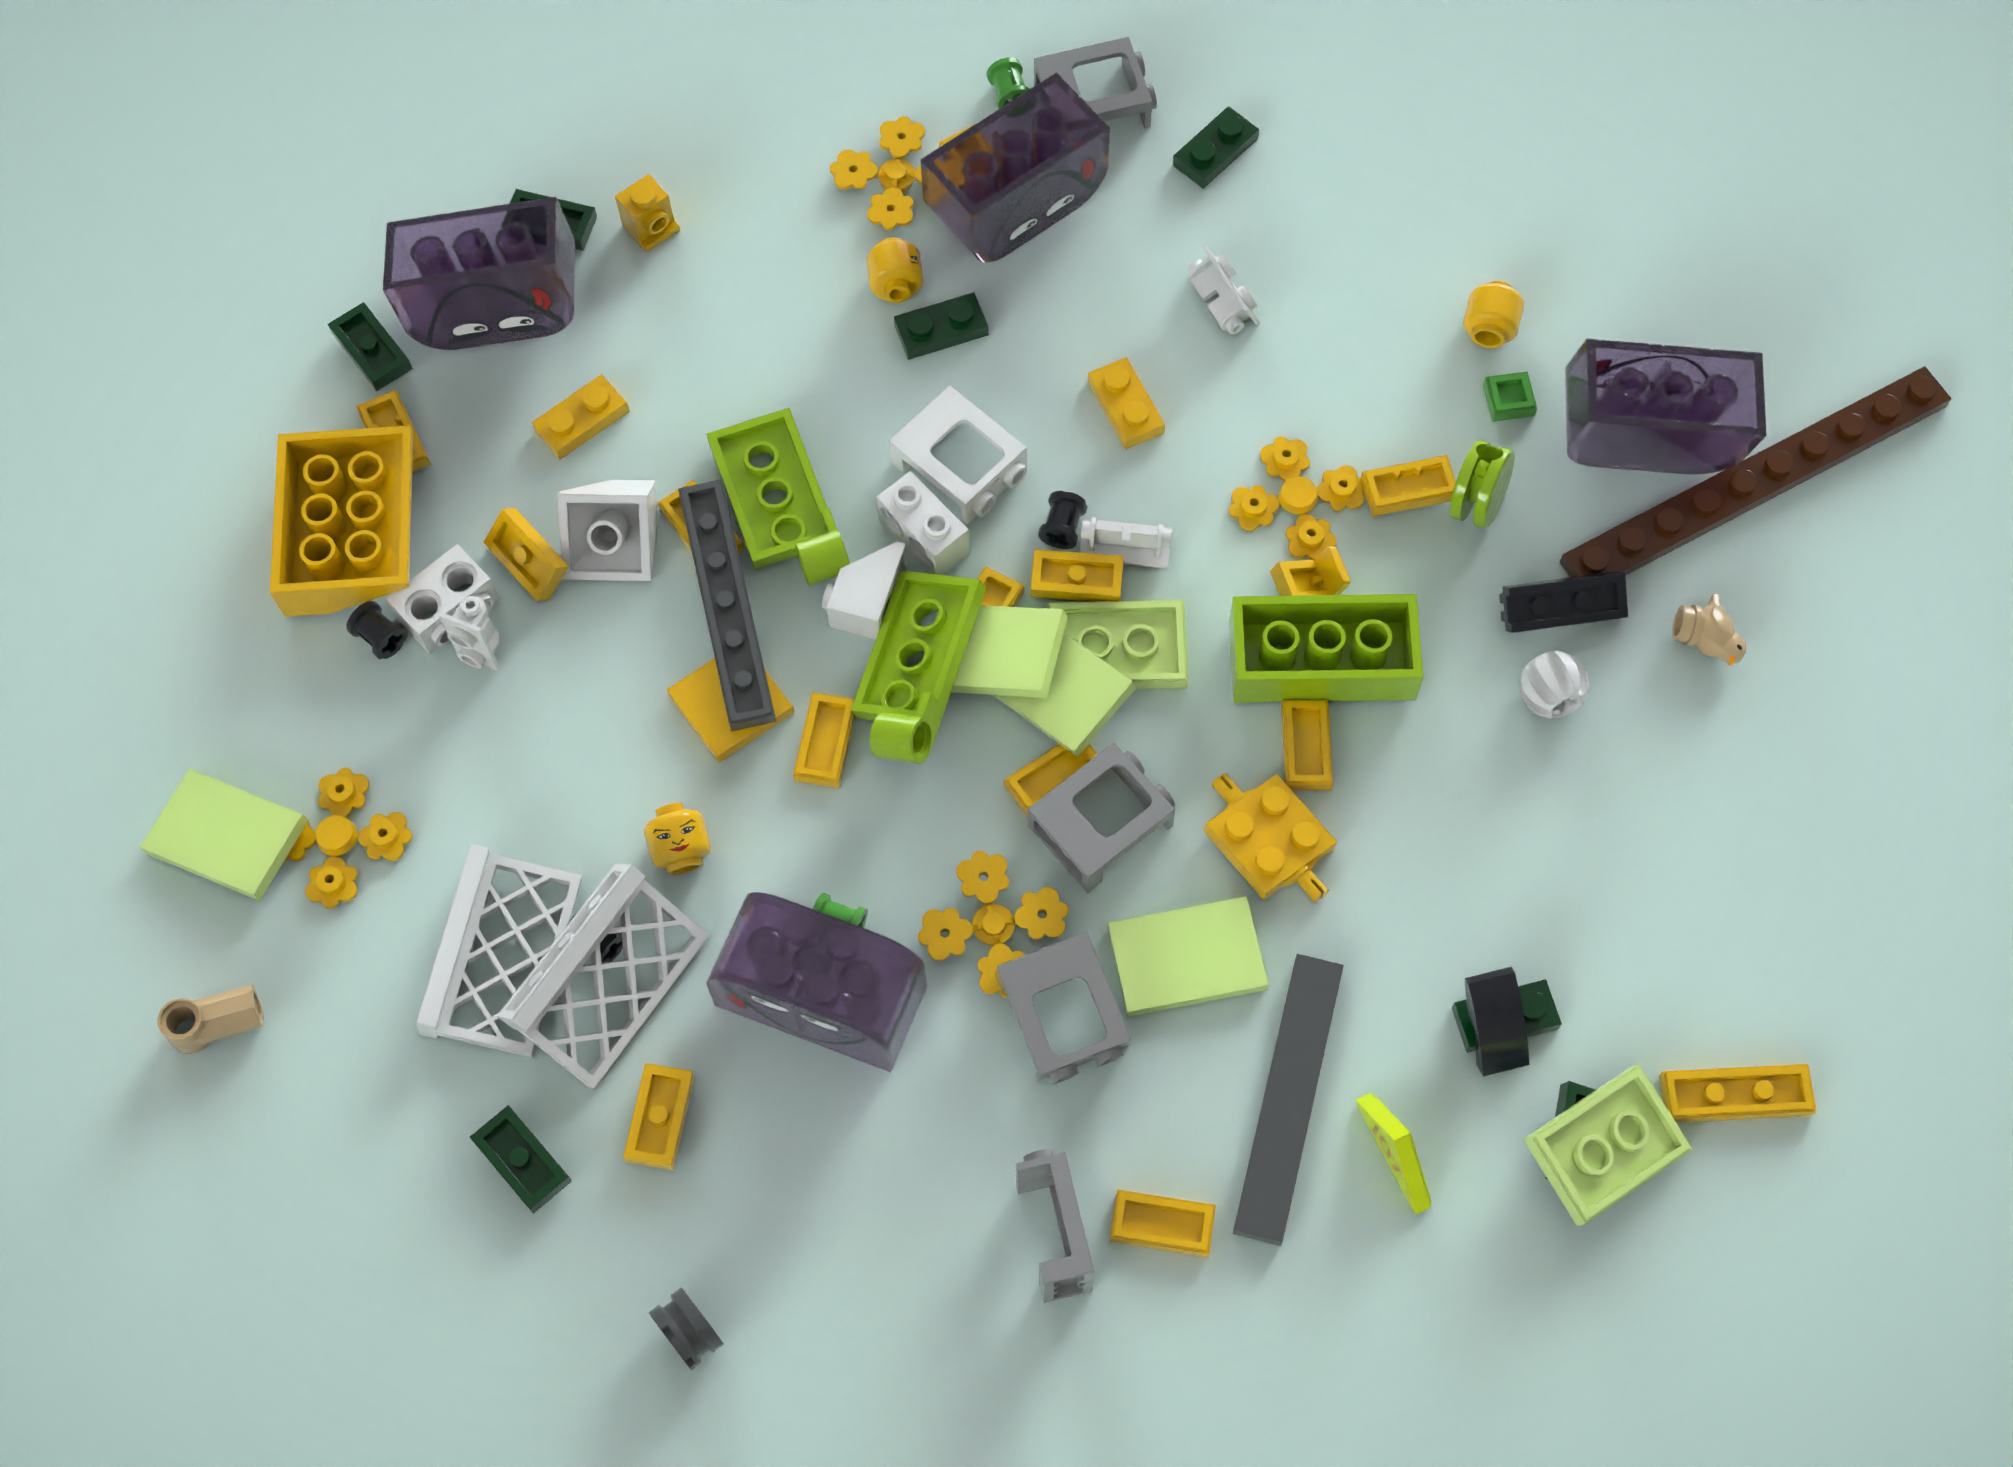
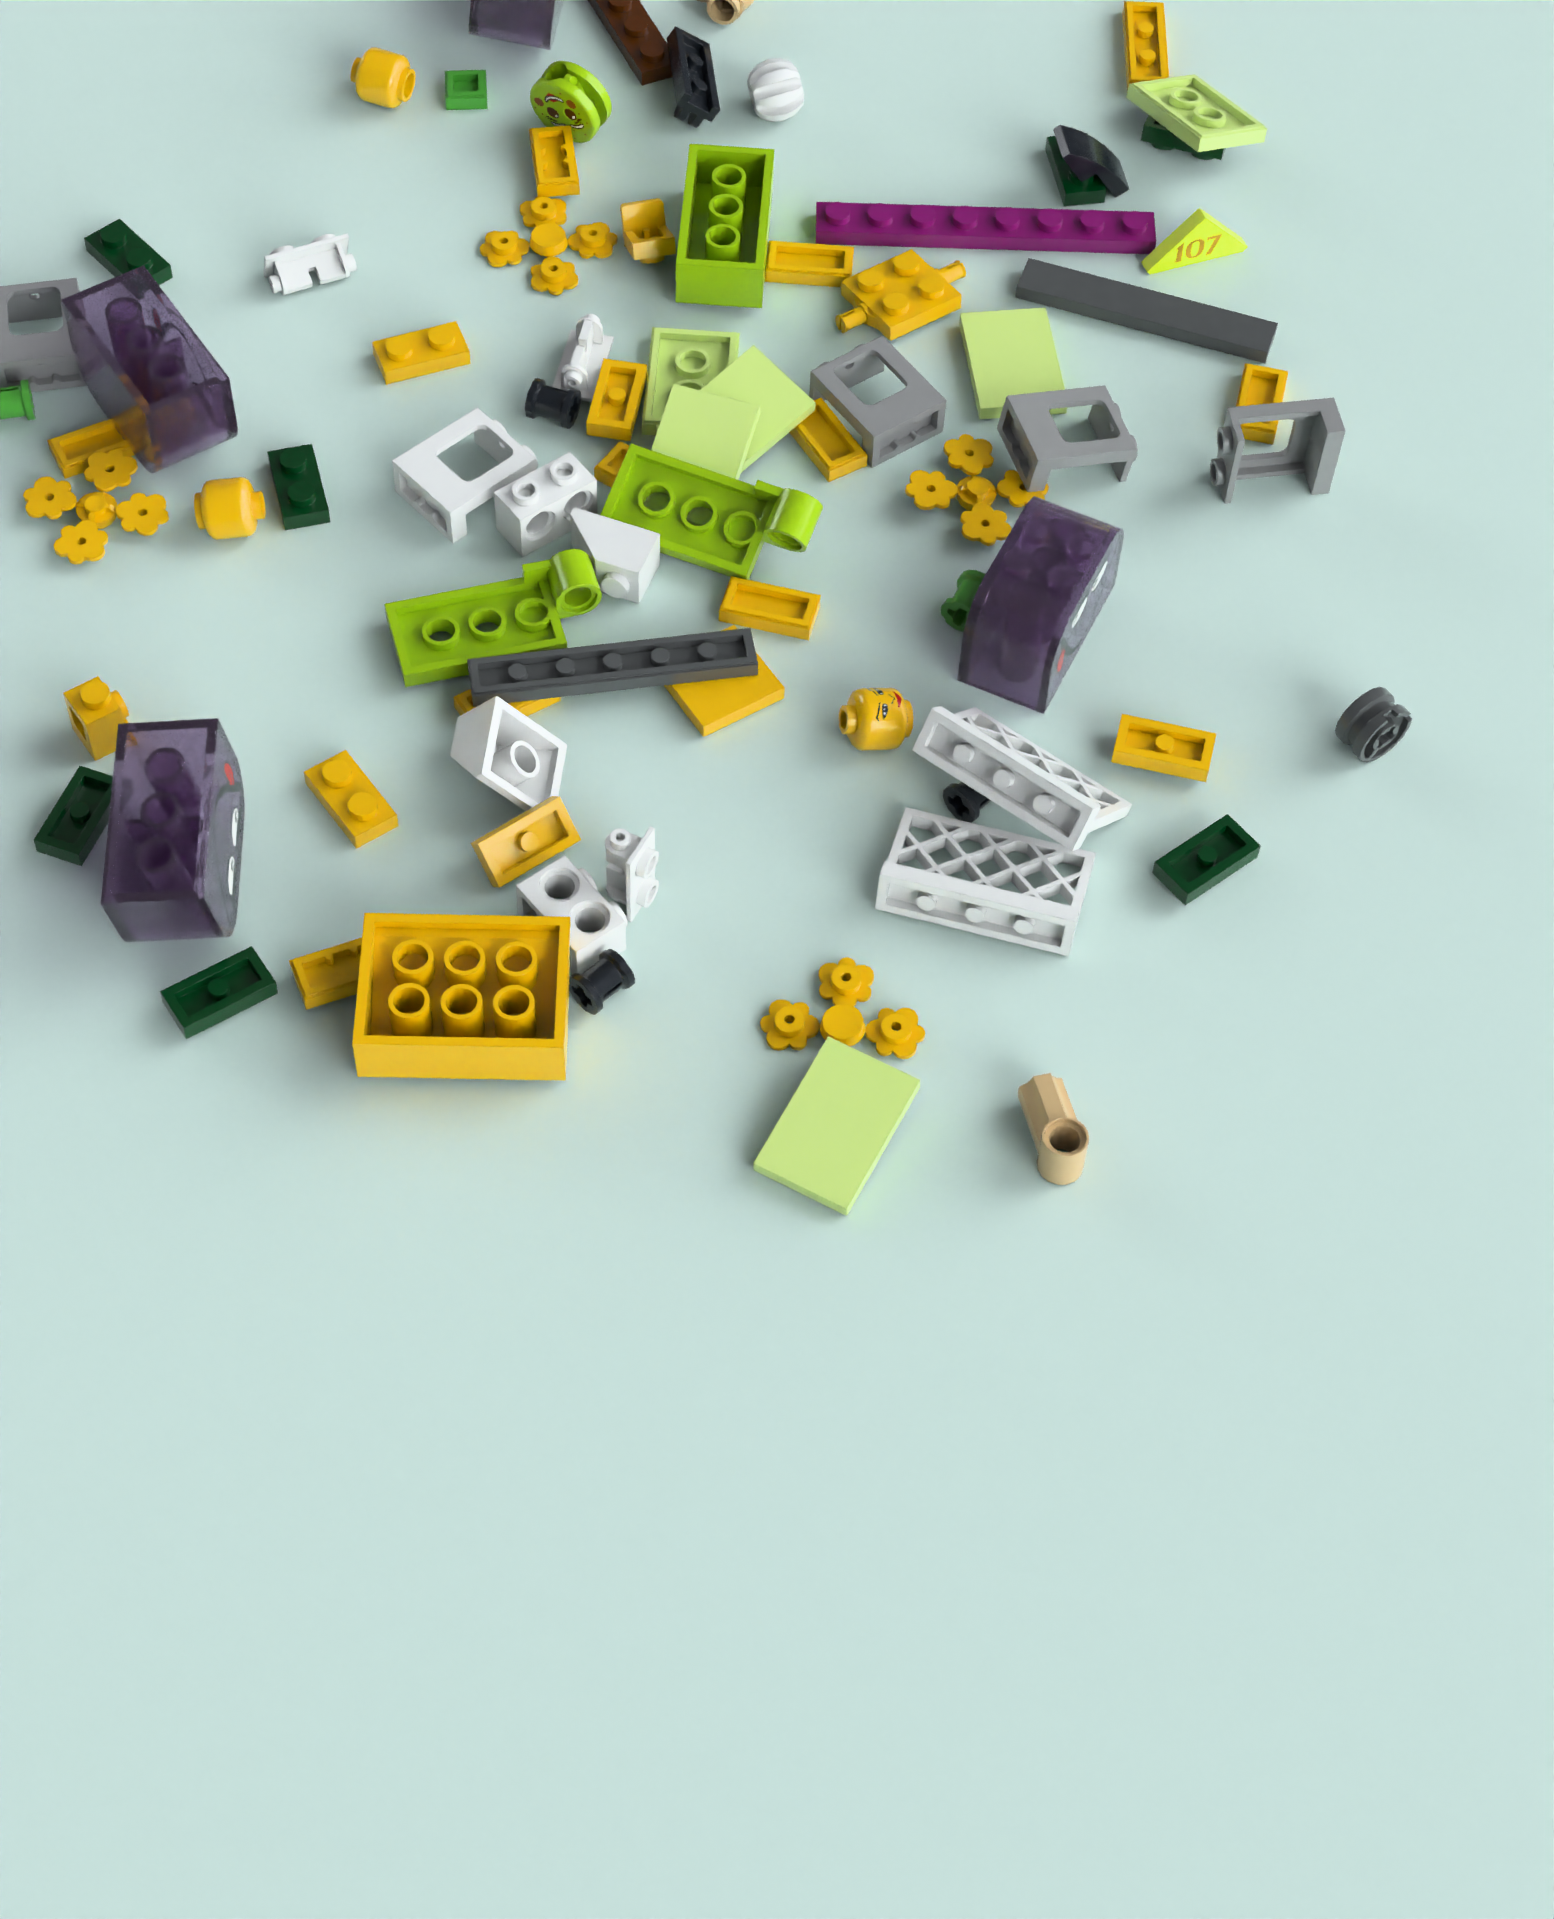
camera: 90 degrees left, 10 degrees down
(1393, 927) = (985, 228): none -> magenta plate

